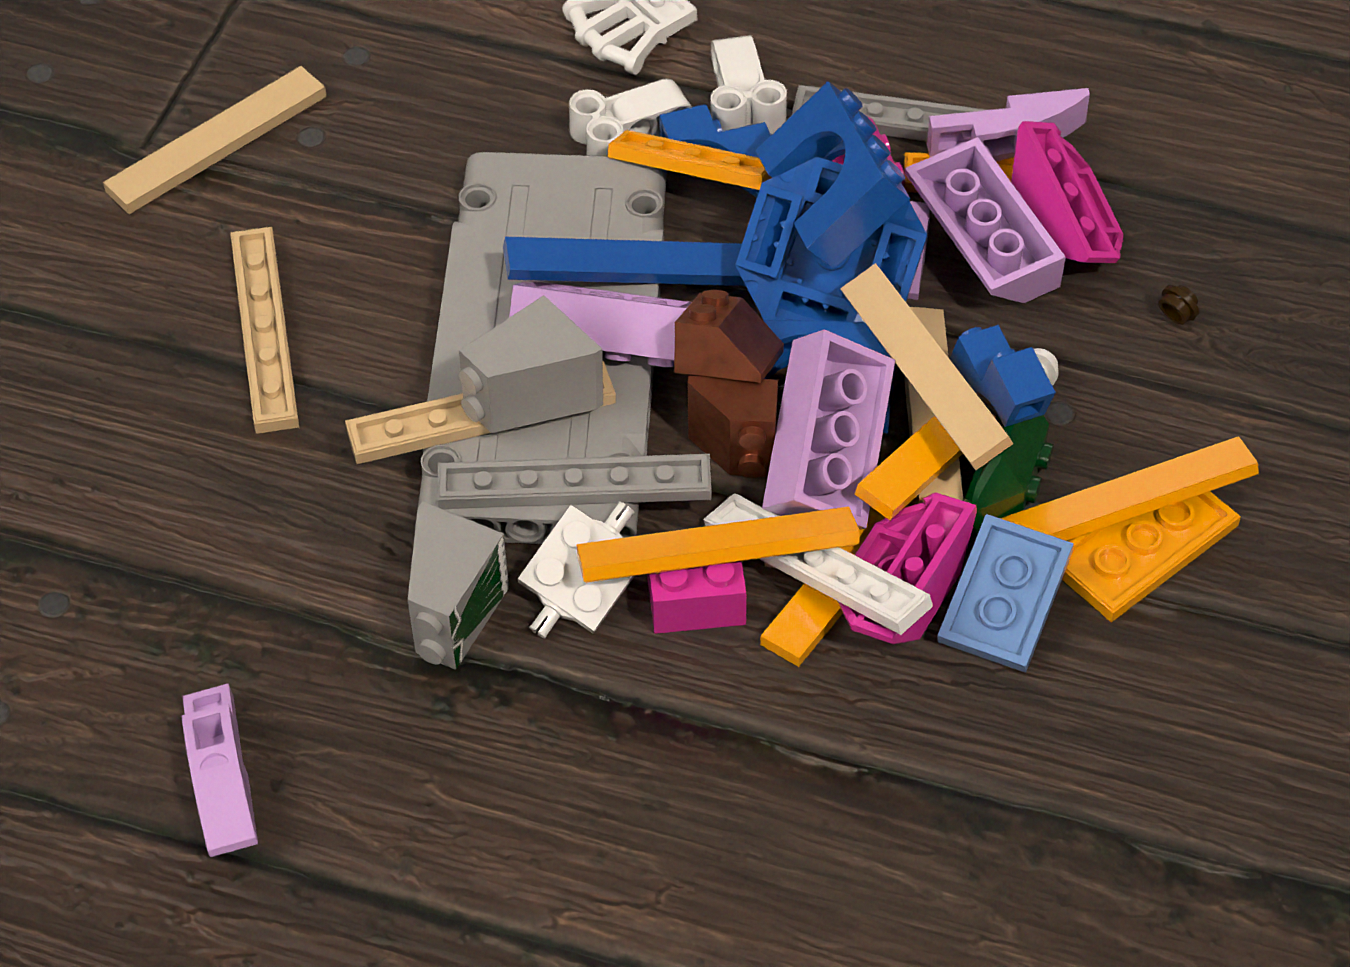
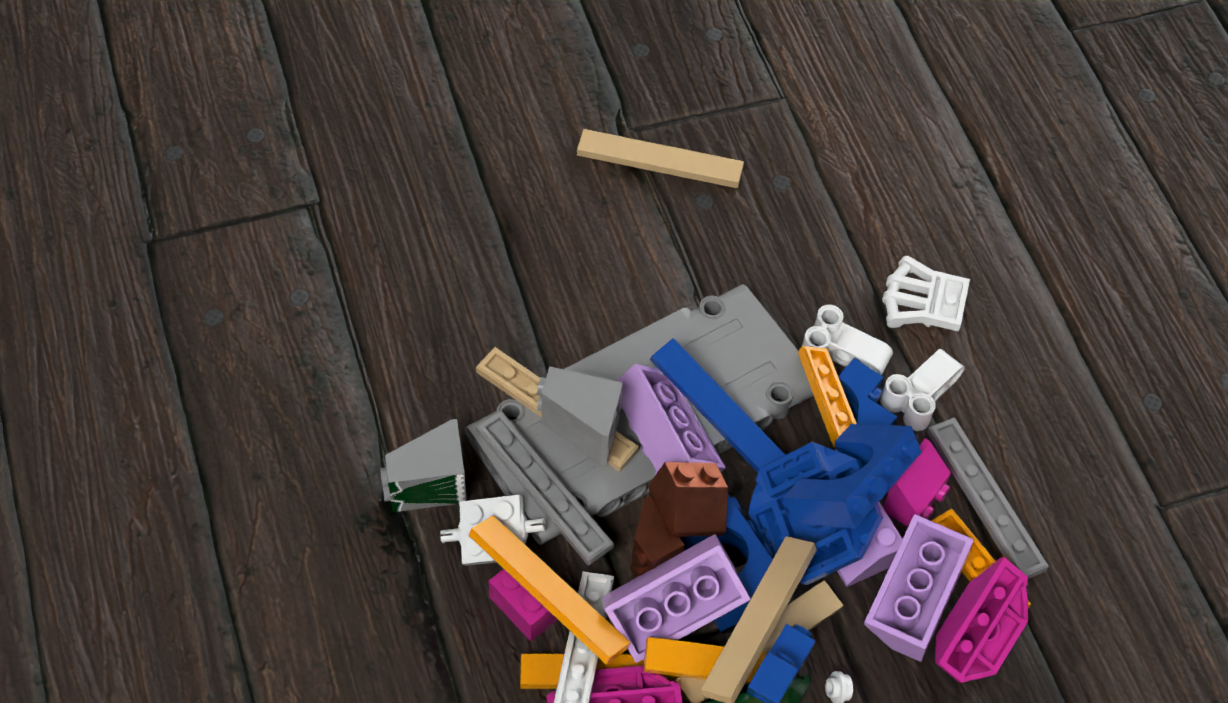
camera: 50 degrees right, 5 degrees up
(218, 770) = (233, 440): lavender slope -> none
(264, 331) = (547, 269): tan tile -> none
(999, 127) = (1030, 557): lavender slope -> none

